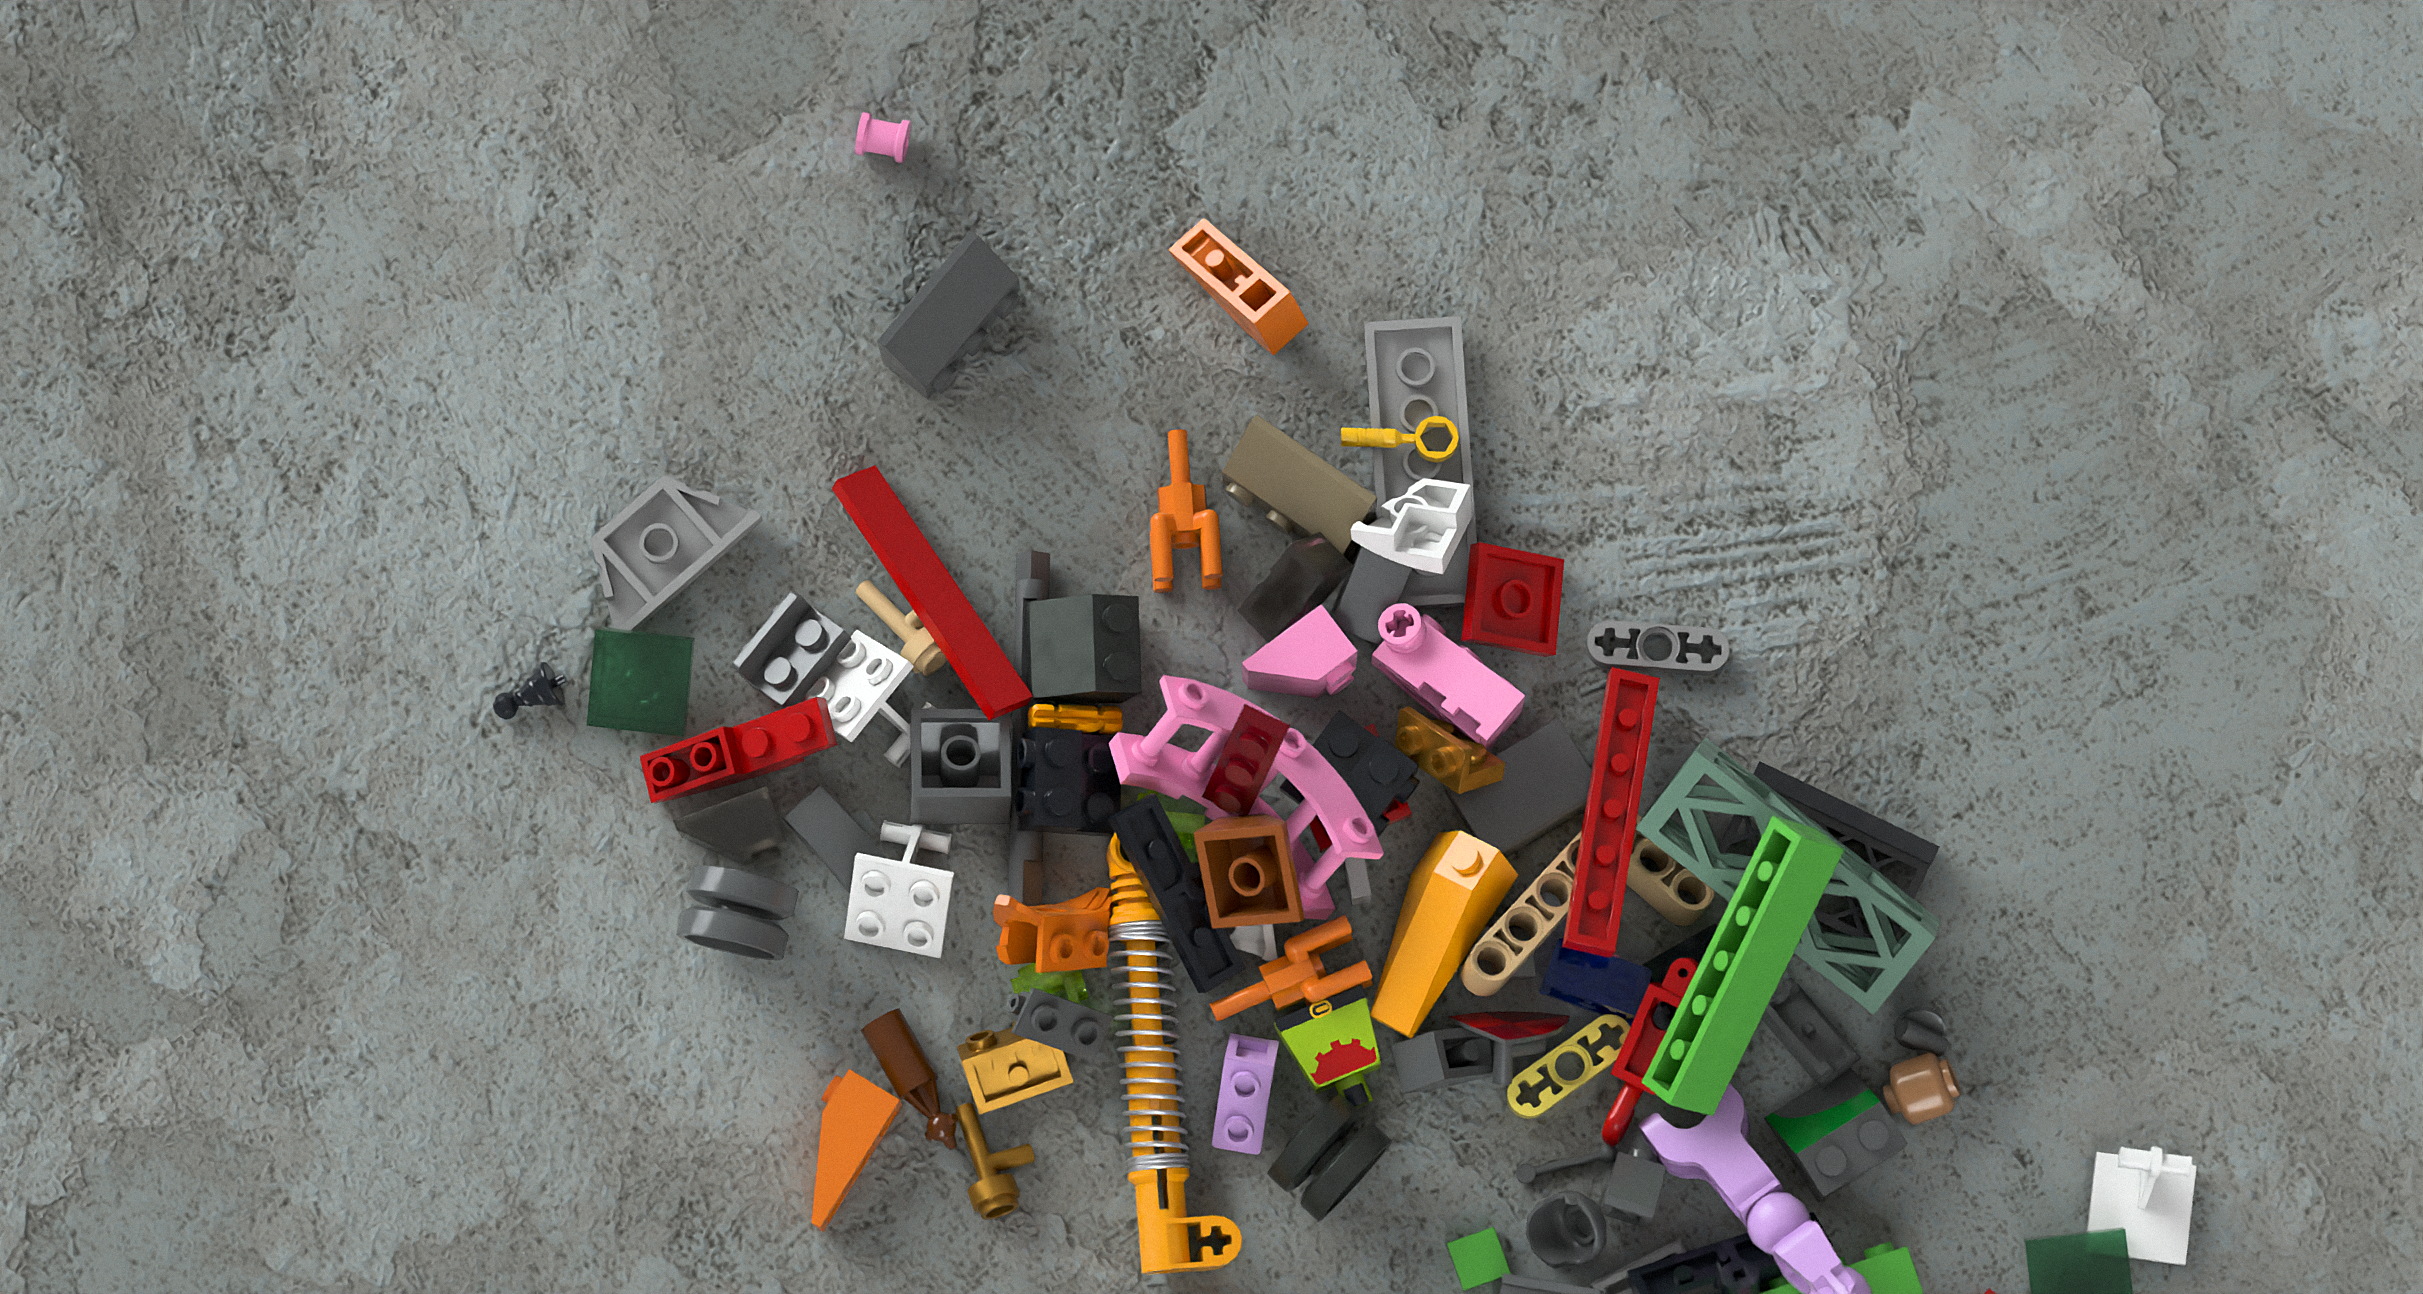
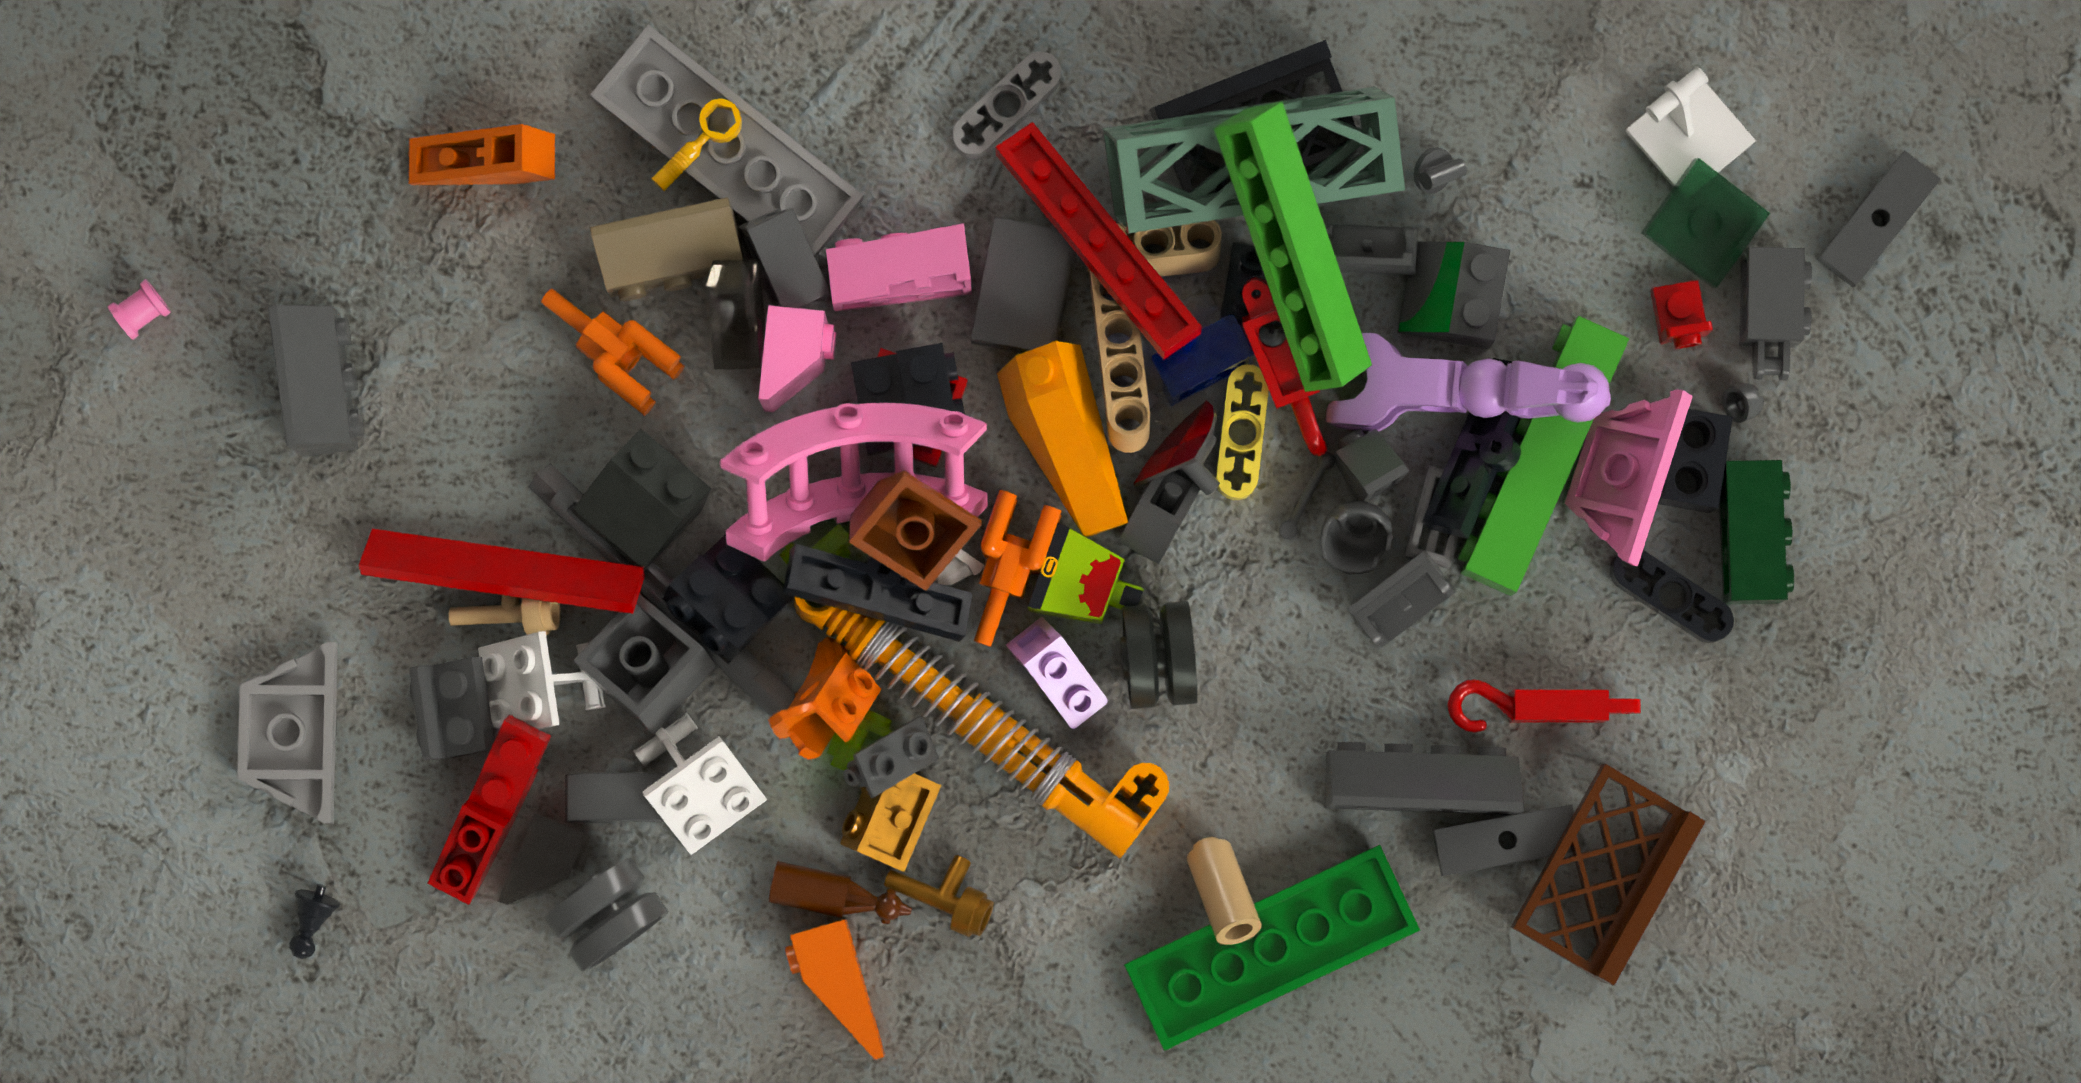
camera: 55 degrees left, 5 degrees up
(640, 681) = (374, 834): clear green tile -> none
(1076, 717) = (685, 551): light orange axle -> none
(1245, 760) = (833, 459): dark red plate -> none
(1357, 880) = (982, 460): light grey tile -> none
(1389, 623) = (822, 271): bright pink bush -> none
(1420, 526) = (773, 187): white slope -> none
(1446, 752) = (950, 316): pearl gold bracket -> none
(1478, 1259) = (1318, 616): bright green tile -> none
(1512, 599) = (882, 172): red plate -> none
(1922, 1088) = (1477, 206): medium nougat head -> none

